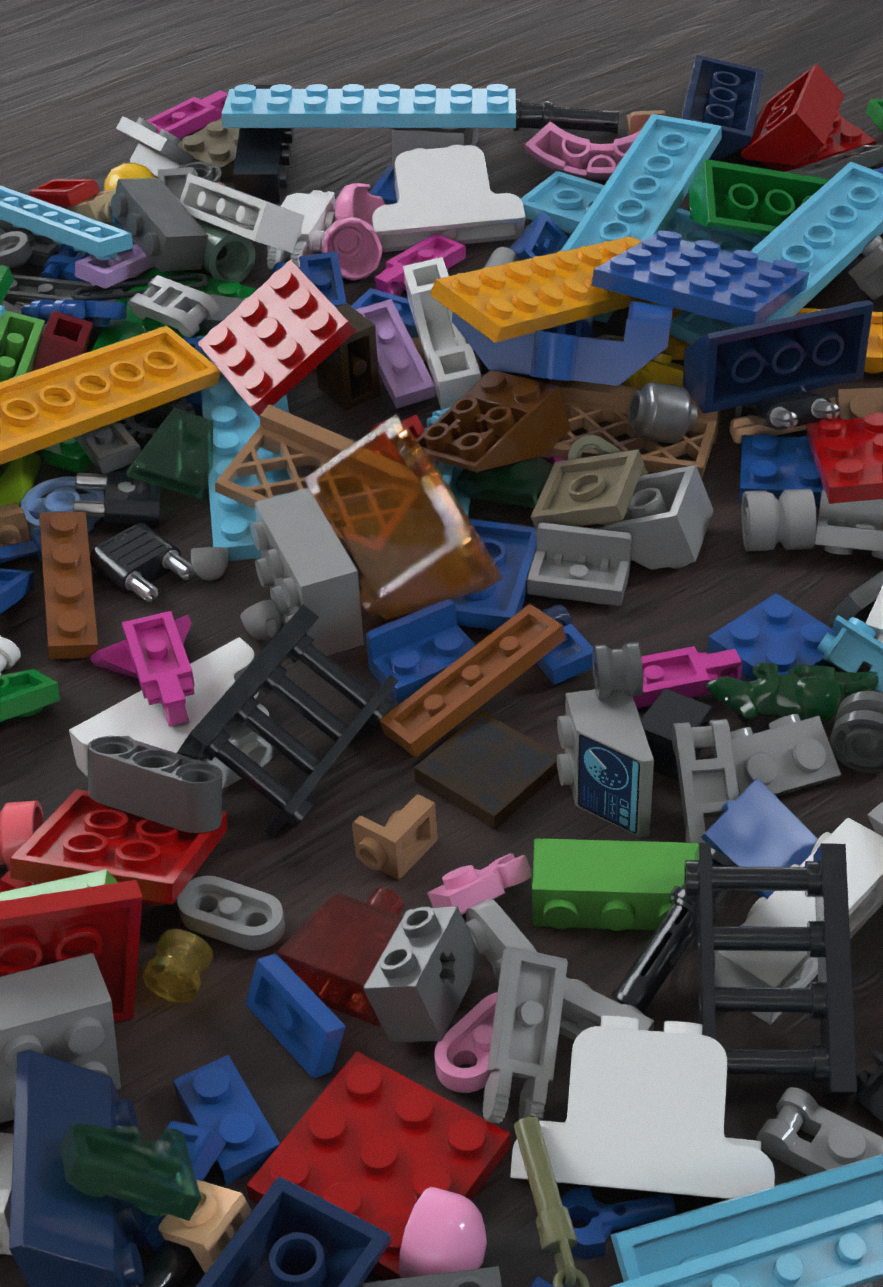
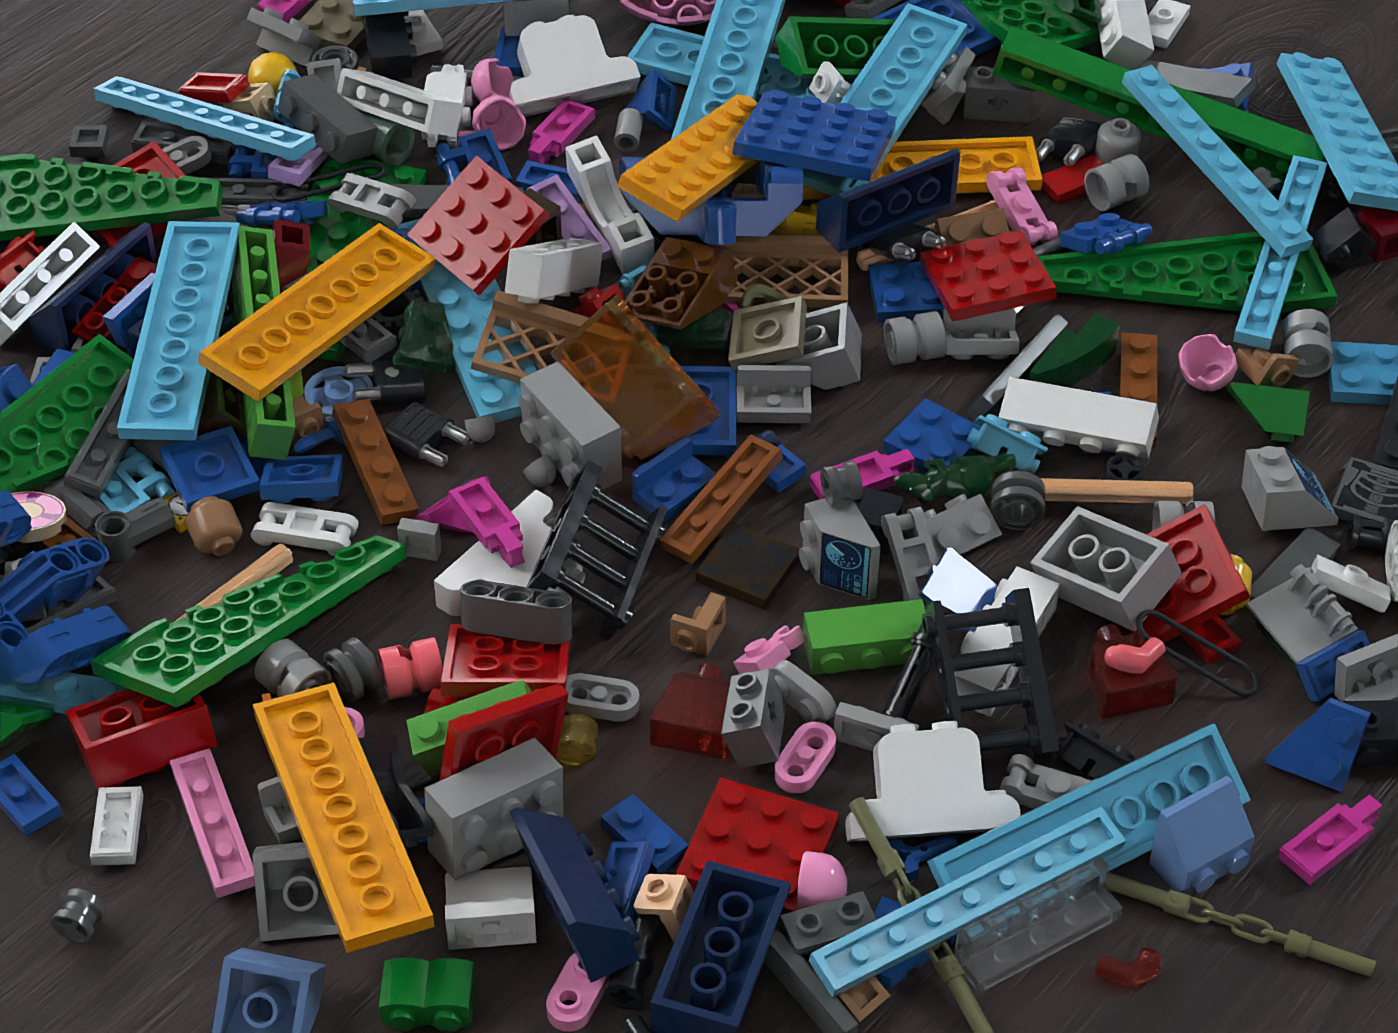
camera: 15 degrees left, 5 degrees up
(81, 680) = (420, 538): none -> light grey plate
(145, 1173) = (619, 870): clear green wing -> none
(295, 1015) = (671, 760): blue plate -> none
(305, 163) = (424, 34): none -> white plate
(343, 391) = (553, 269): none -> white brick
(524, 1031) = (836, 747): light grey hinge -> none
(662, 412) = (807, 257): flat silver head -> none
(737, 233) = (829, 84): none -> white bracket

